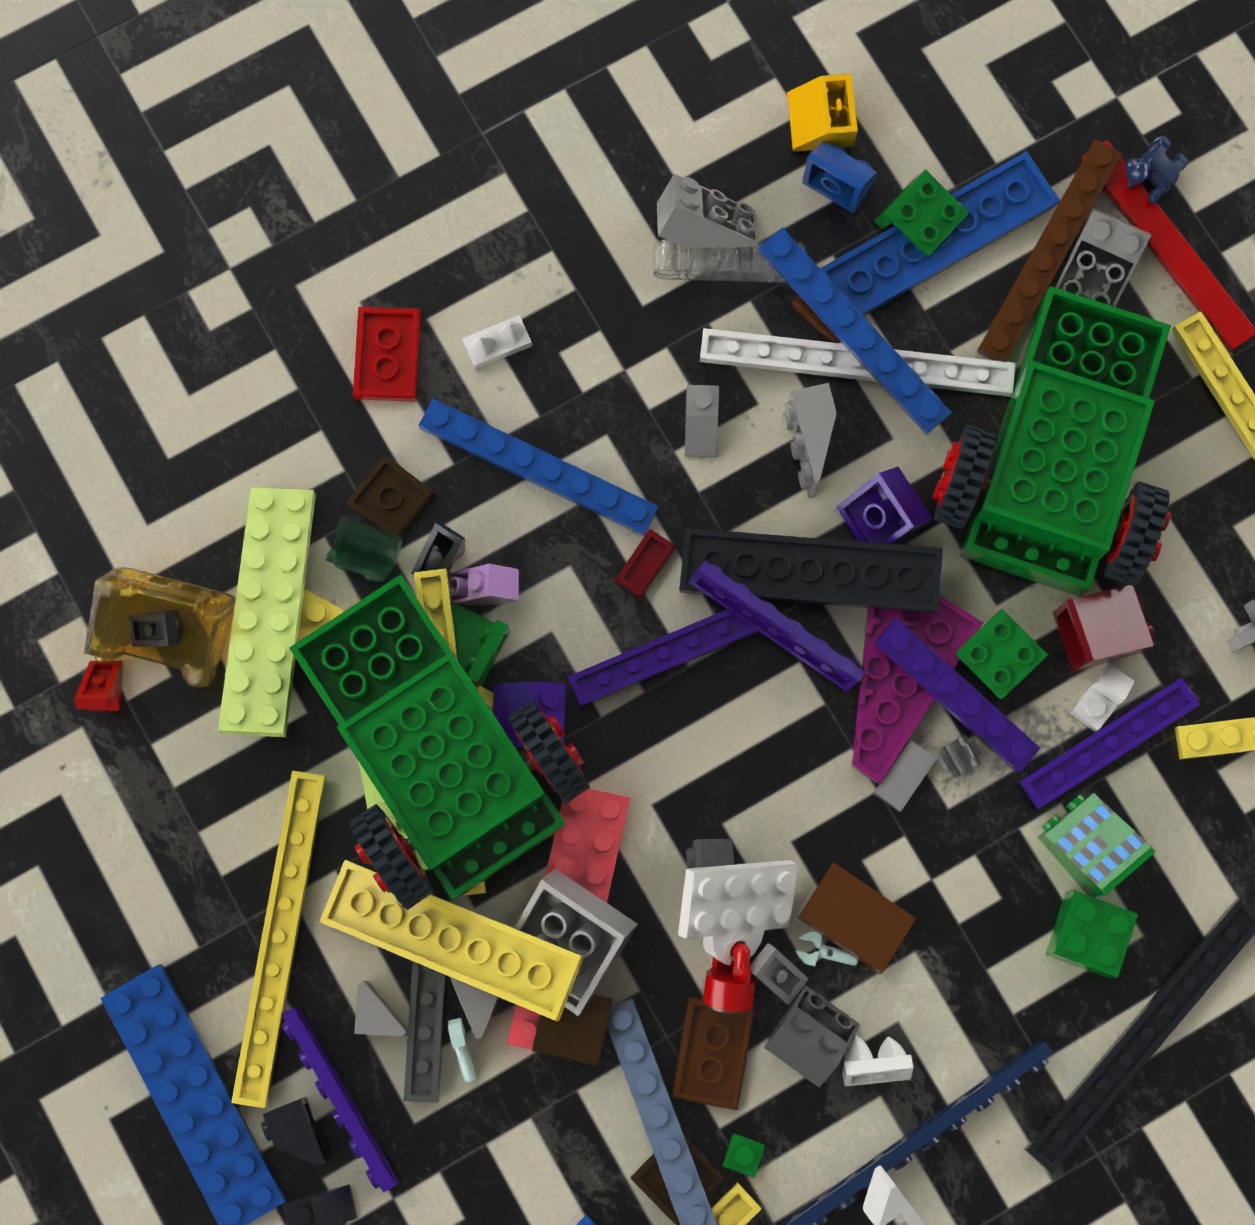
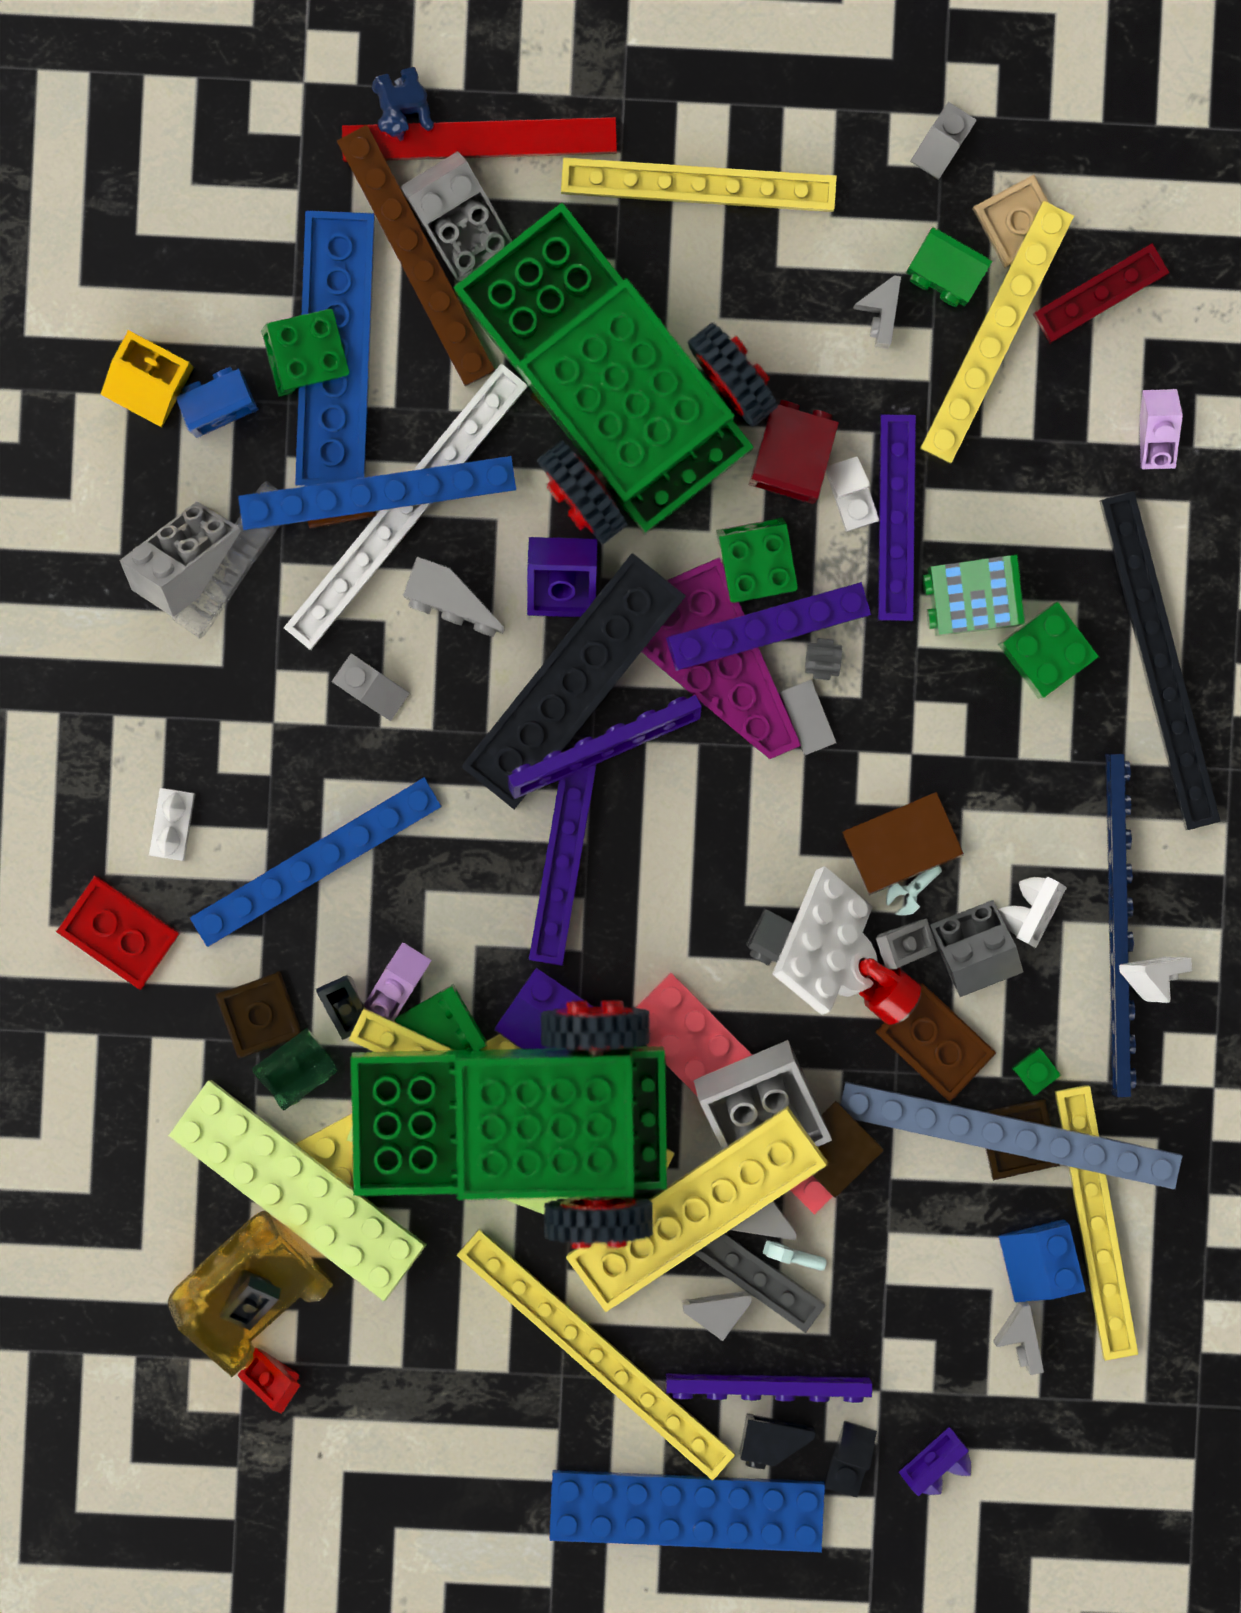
camera: 55 degrees left, 10 degrees up
(645, 564) = (469, 822): dark red tile -> none

